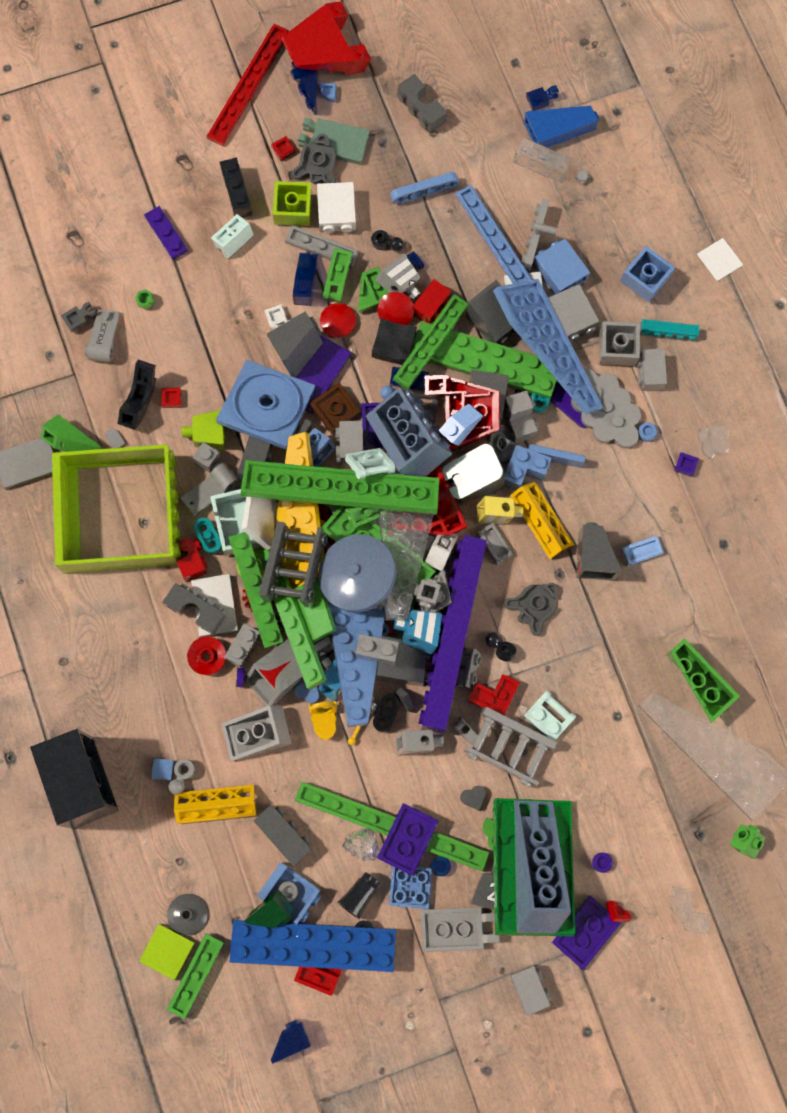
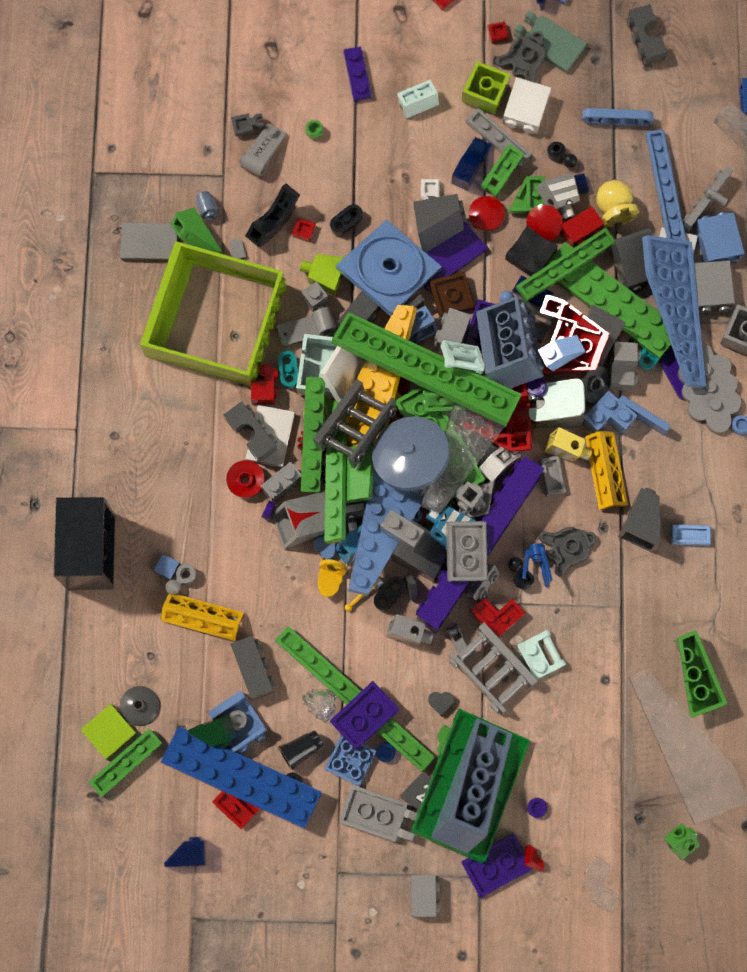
camera: 25 degrees right, 0 degrees up
(69, 408) = (206, 205): none -> sand blue brick
(208, 374) = (344, 219): none -> black plate
(235, 187) = (438, 54): black arch -> none
(256, 733) = (264, 566): light grey slope -> none
(445, 646) = (466, 551): none -> light grey tile
(449, 466) = (537, 387): none -> dark purple tile
(454, 267) = (615, 201): none -> light yellow tile
(510, 622) = (537, 554): none -> blue plant

